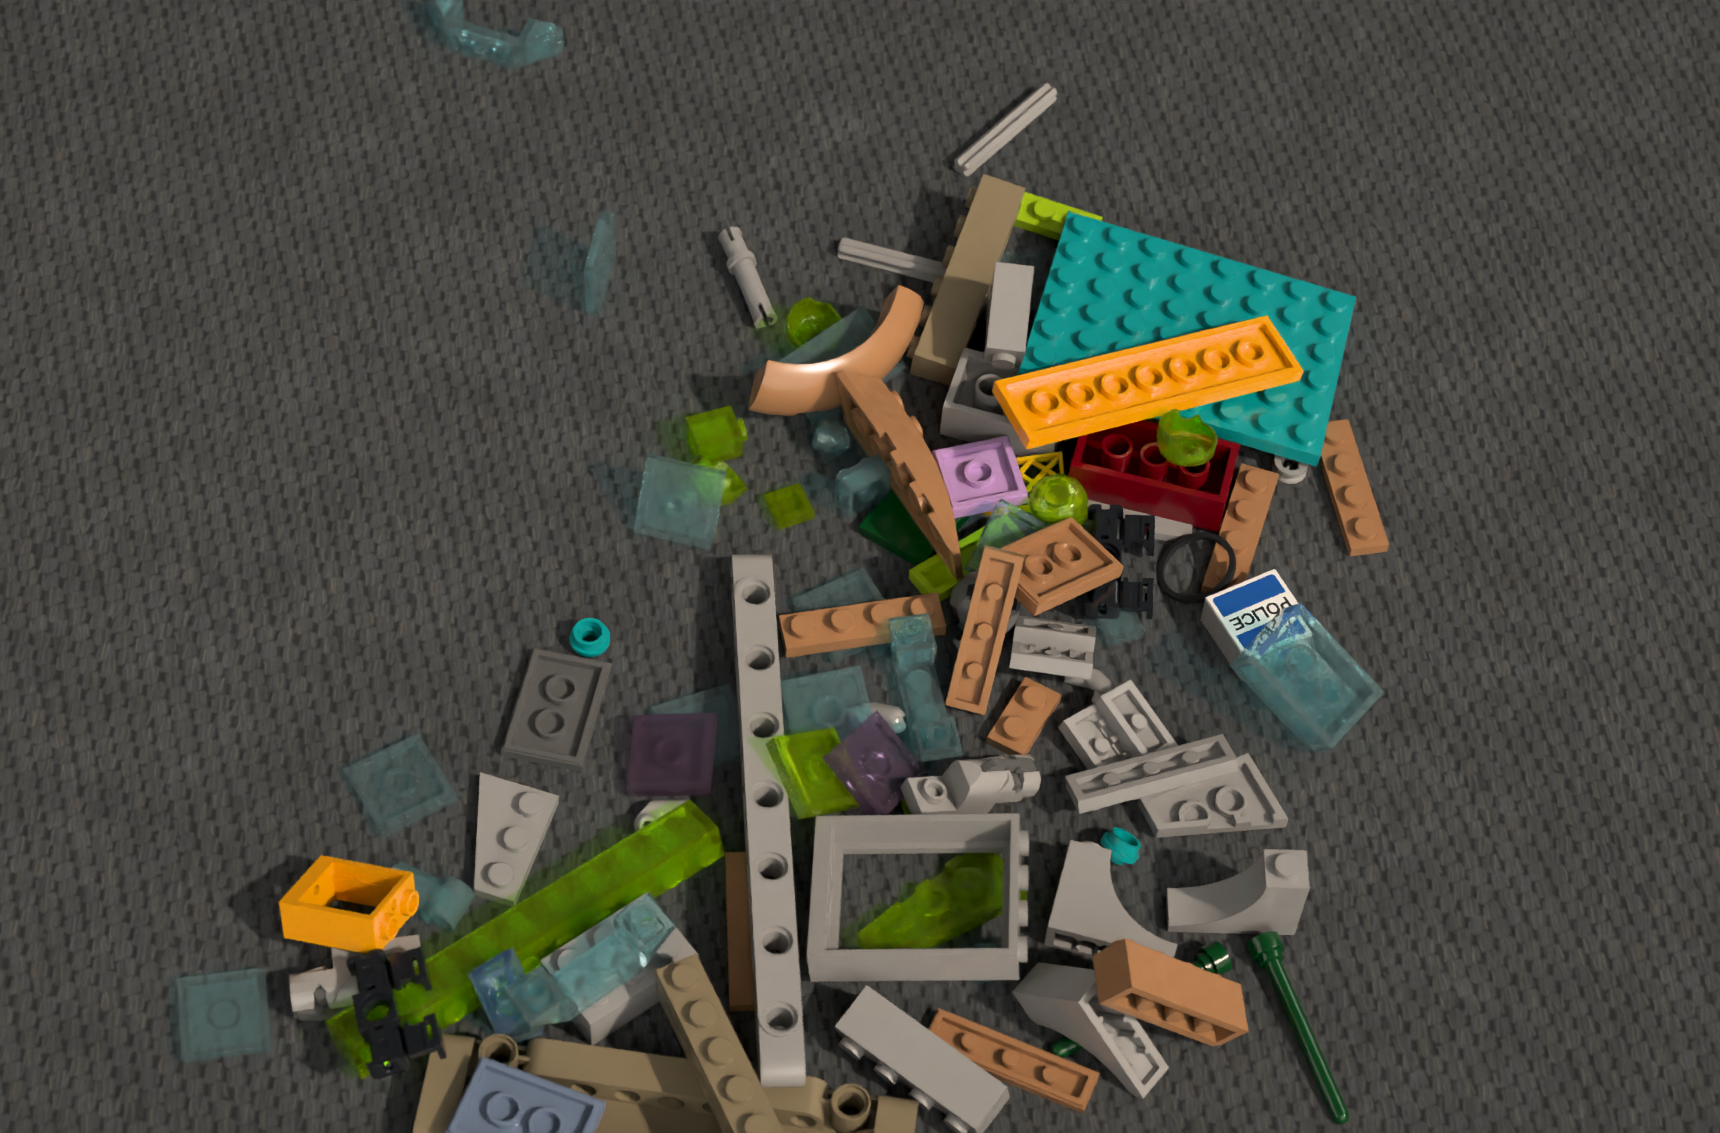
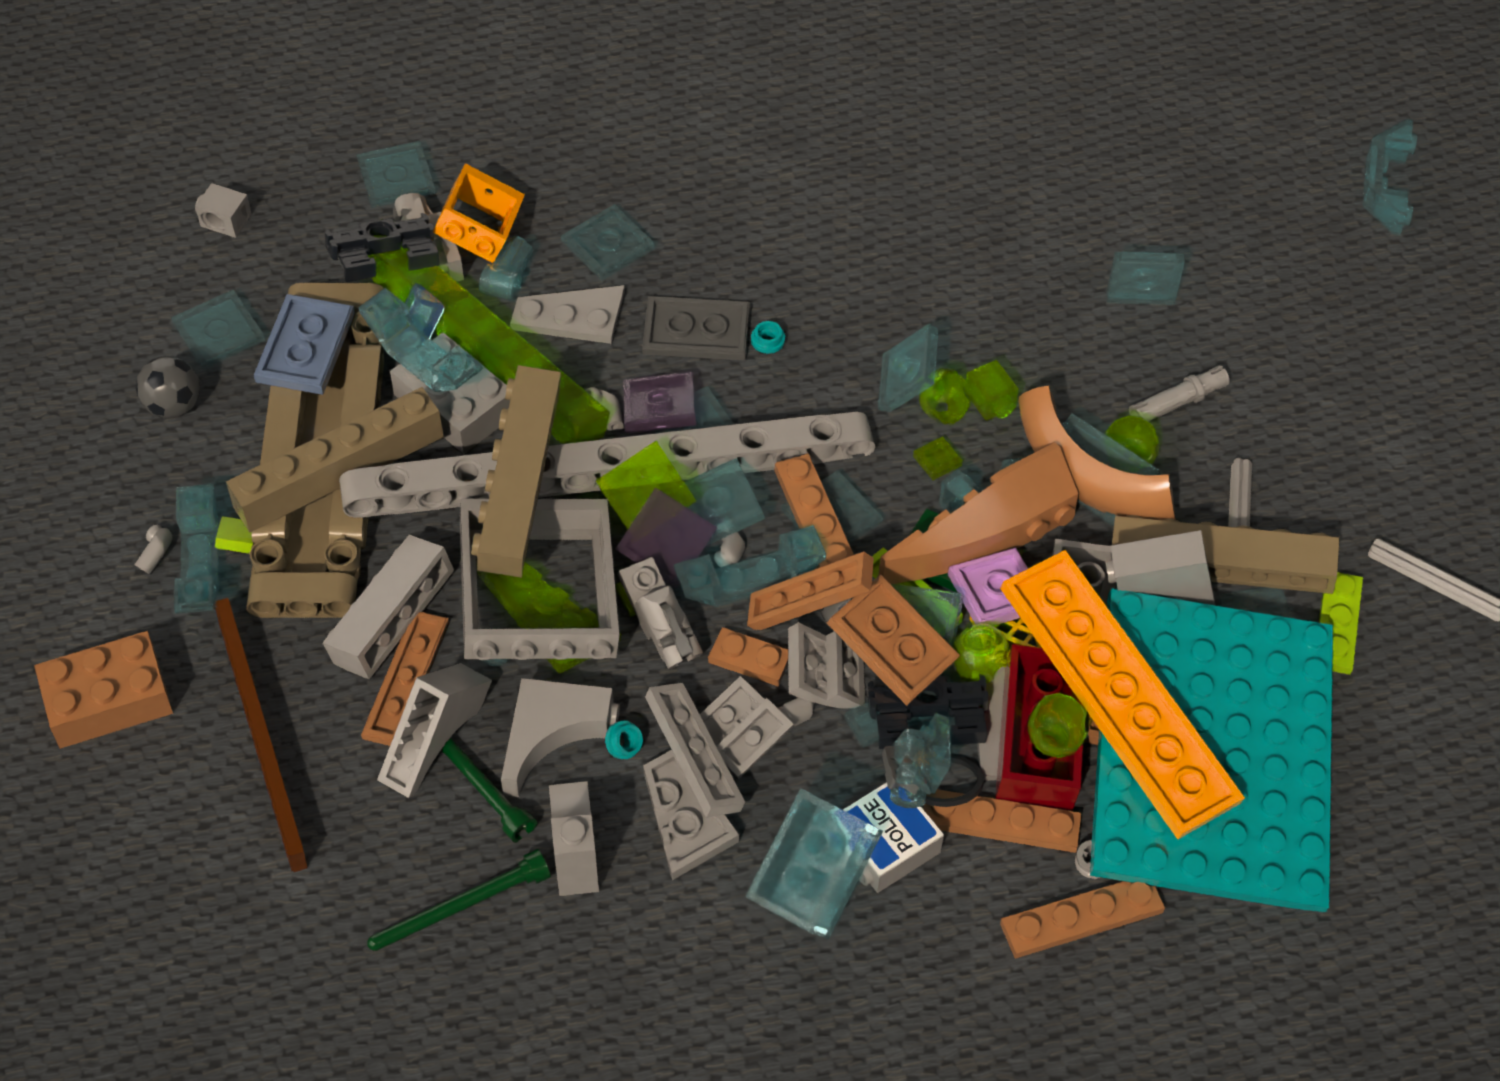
camera: 85 degrees right, 0 degrees up
(796, 877) = (518, 471): none -> dark tan brick
(1169, 993) = (449, 763): medium nougat brick -> none
(1194, 570) = (918, 762): none -> clear light blue plate

